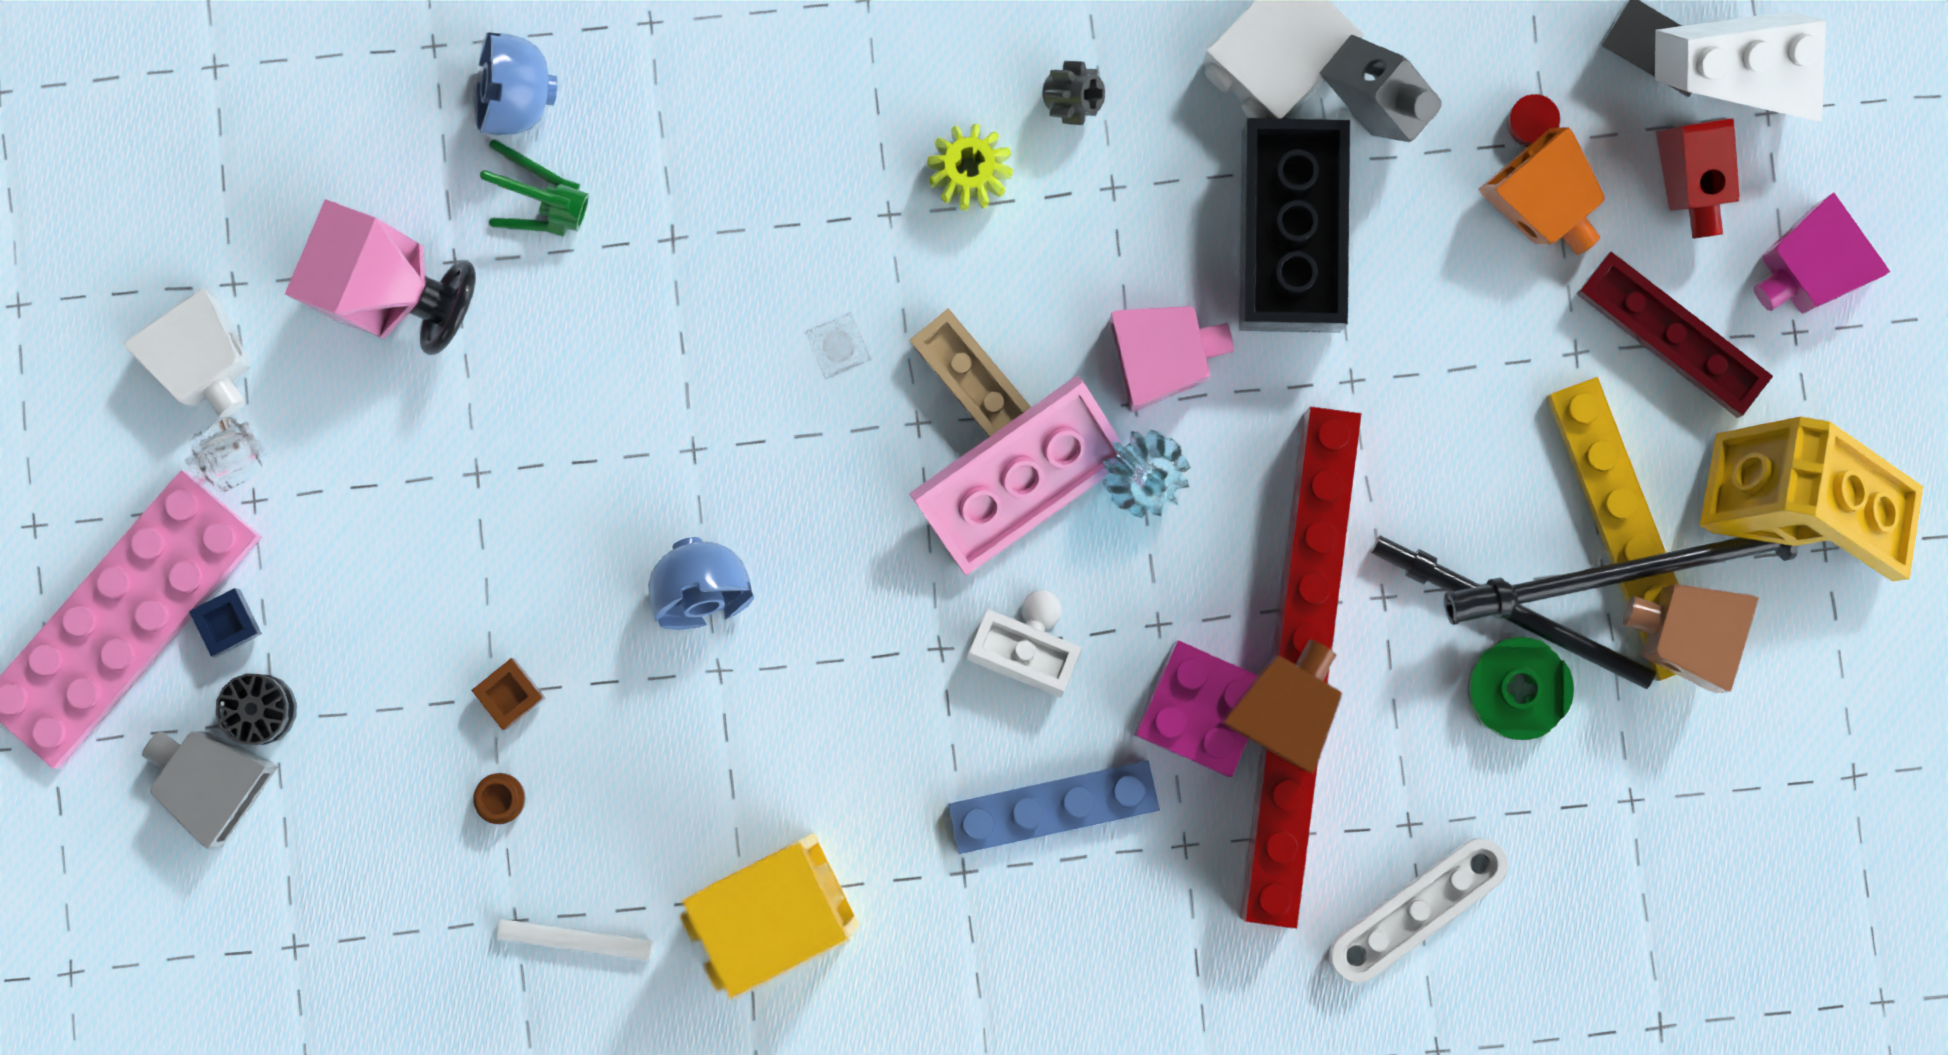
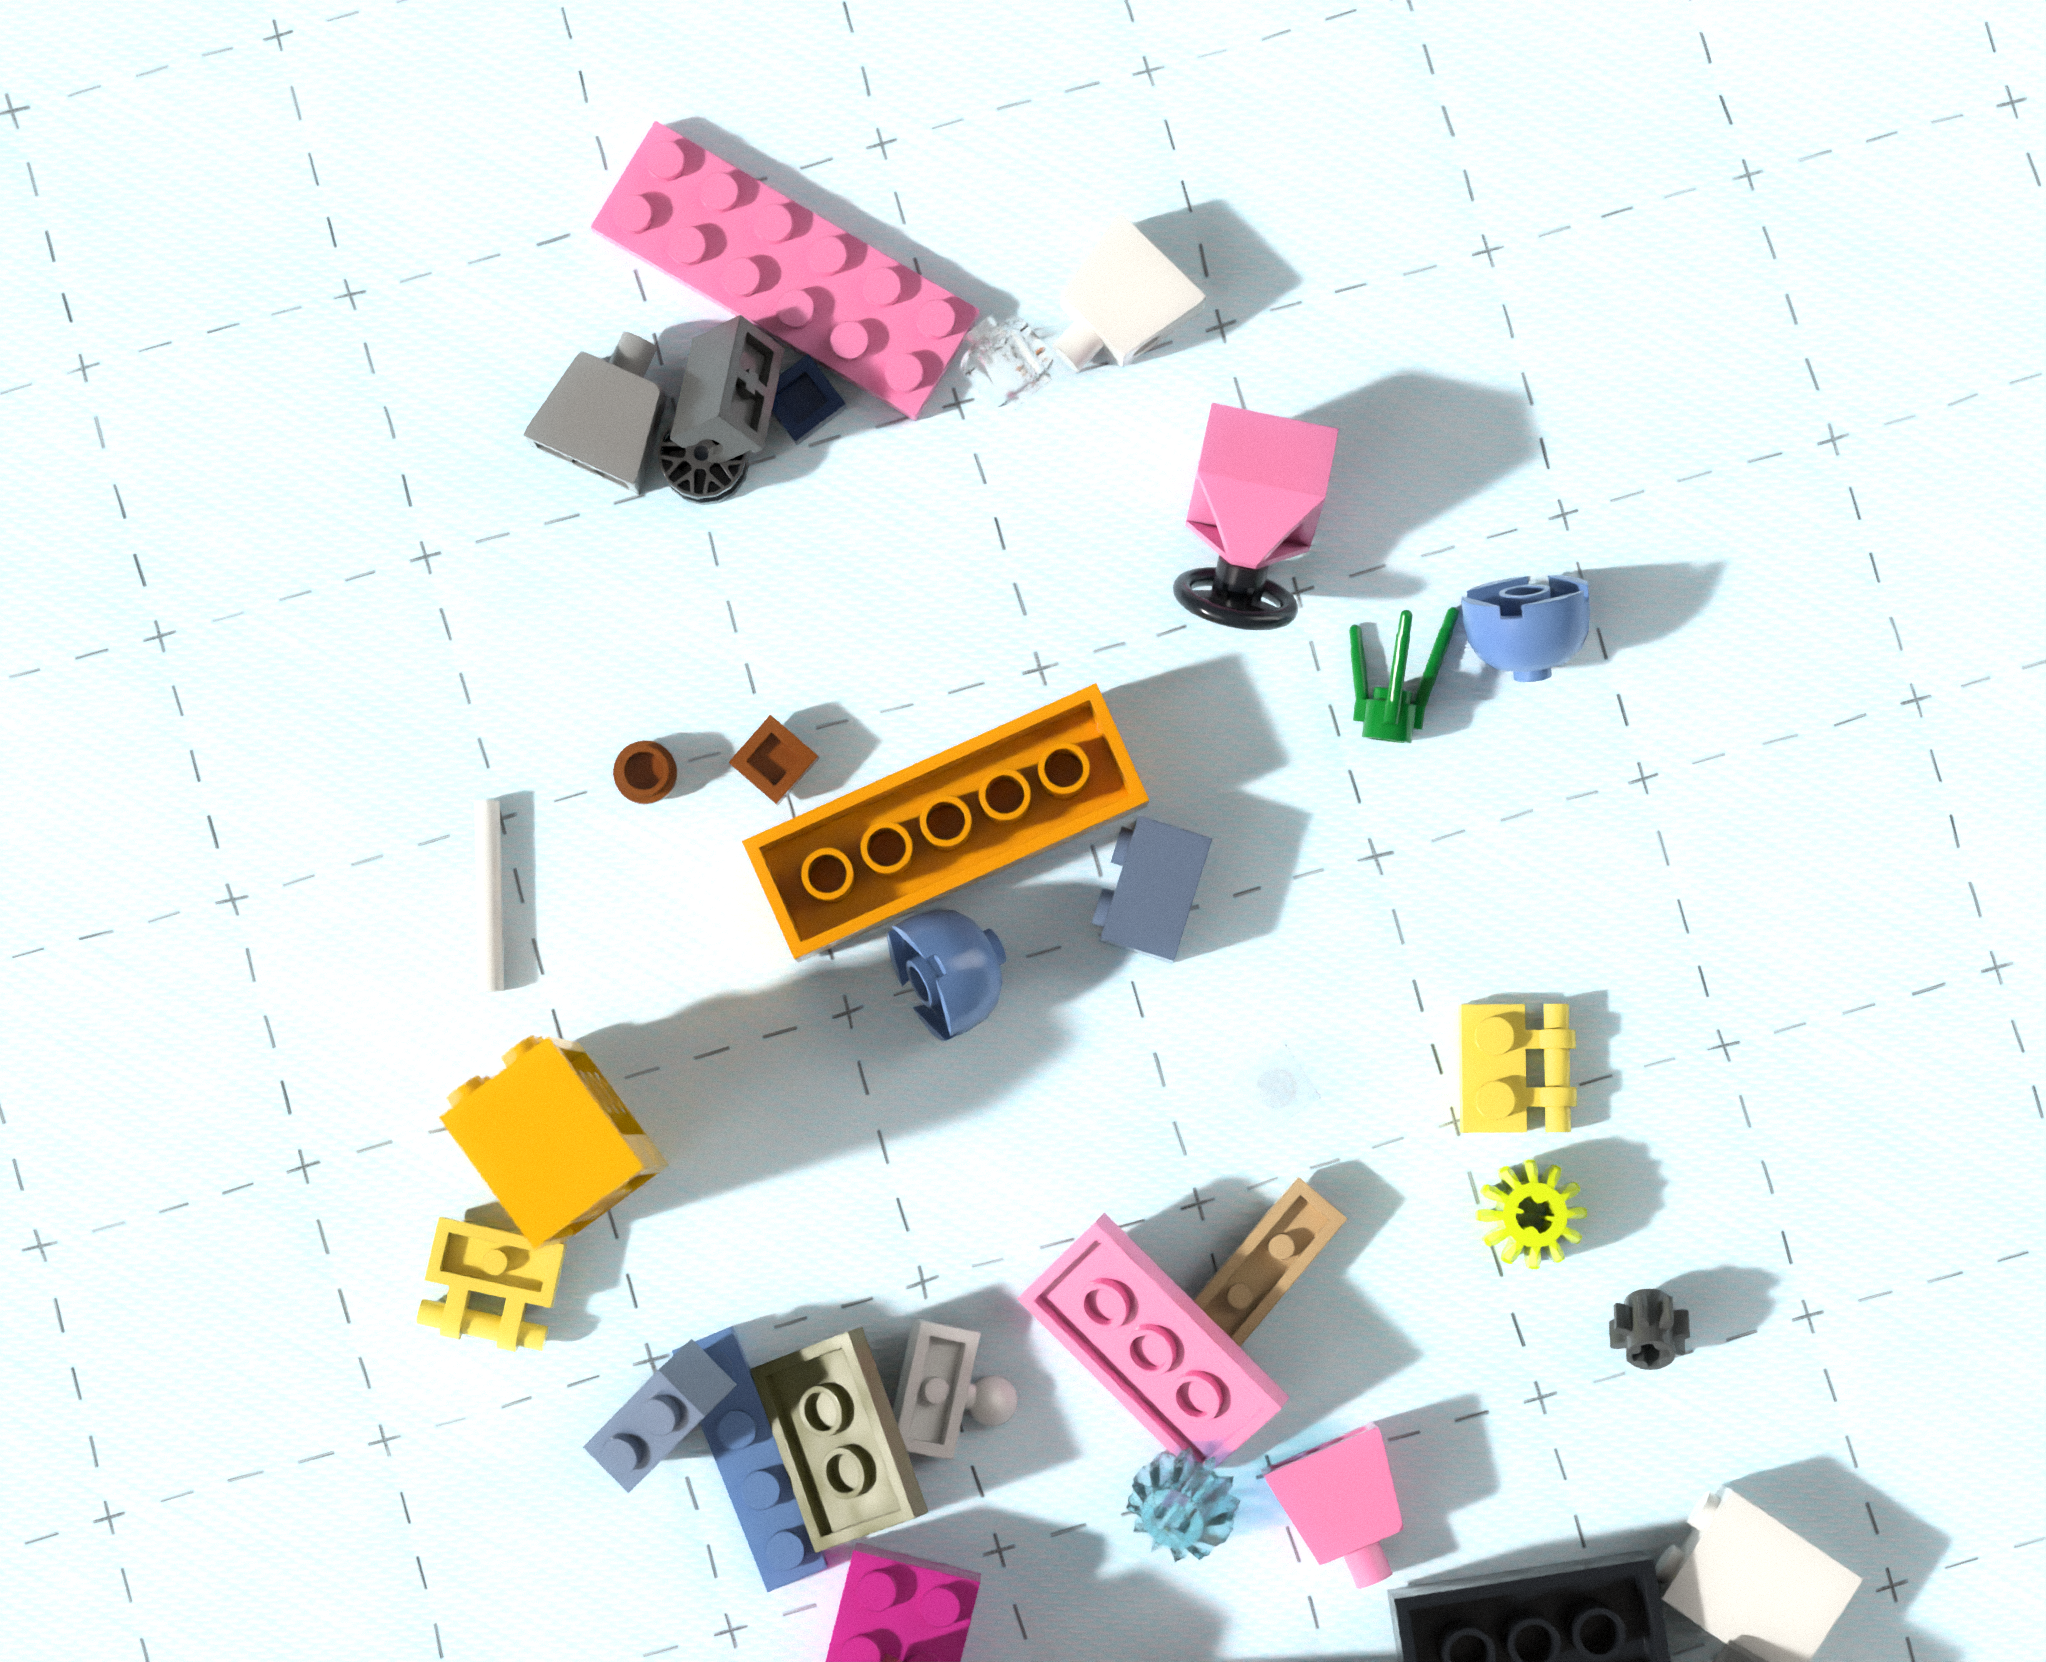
camera: 75 degrees right, 0 degrees up
(203, 678) = (728, 390): none -> dark grey hinge
(581, 564) = (946, 823): none -> light orange brick
(664, 412) = (1153, 888): none -> sand blue brick
(852, 175) = (1494, 1068): none -> light yellow plate
(865, 983) = (494, 1264): none -> light yellow plate
(1006, 870) = (659, 1415): none -> brick
(1049, 732) = (839, 1440): none -> plate

